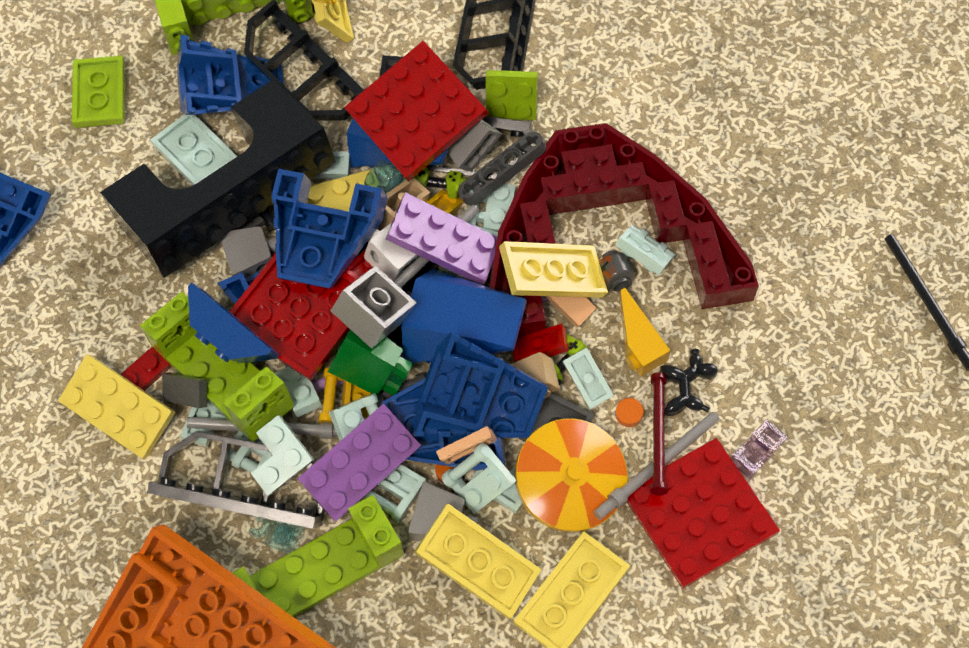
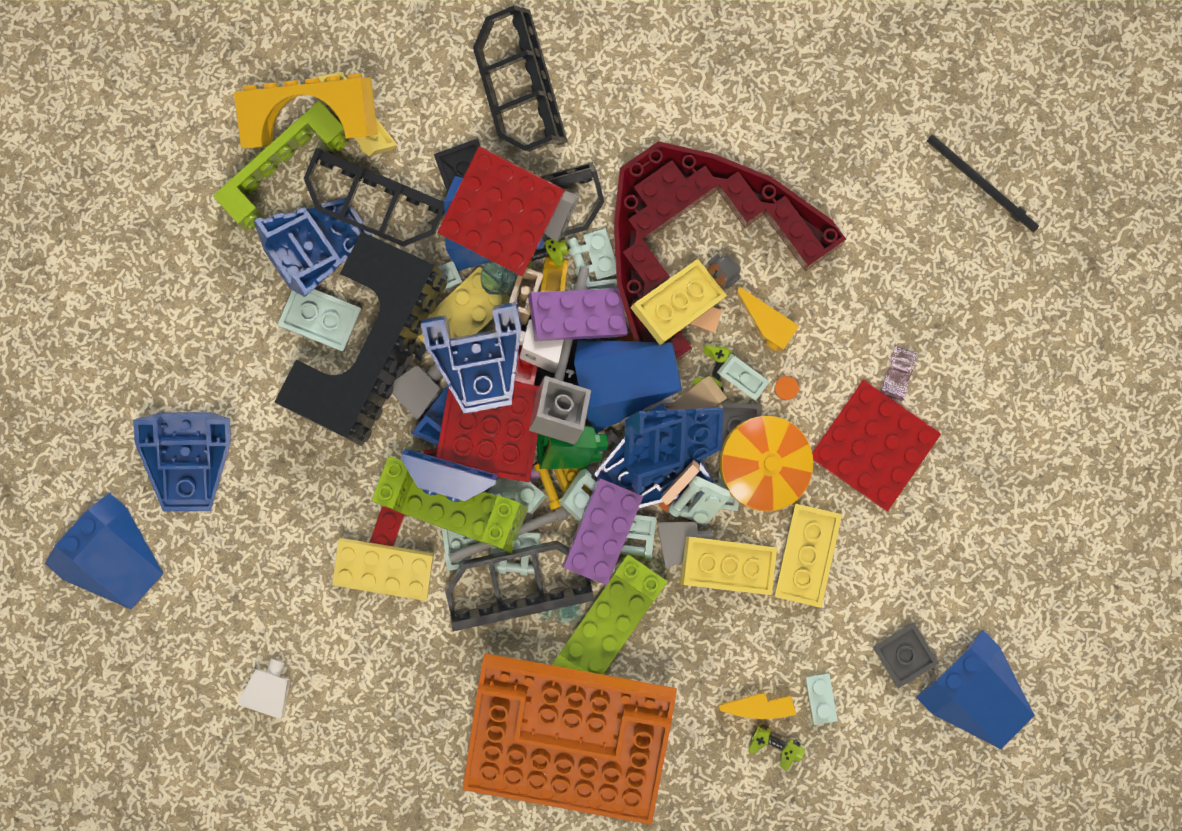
camera: 25 degrees left, 20 degrees up
(98, 91) = (204, 297): lime plate -> none
(184, 390) = (432, 533): dark grey tile -> none
(287, 459) = (546, 555): light aqua plate -> none
(504, 171) = (595, 226): dark grey beam -> none
(511, 94) = (565, 148): lime plate -> none
(547, 341) = (696, 364): red plate -> none
(619, 496) = (810, 466): light grey bar -> none
(645, 249) = (740, 243): light aqua plate -> none
(658, 486) = (839, 445): dark red bar -> none
(683, 378) = (817, 340): black piece -> none

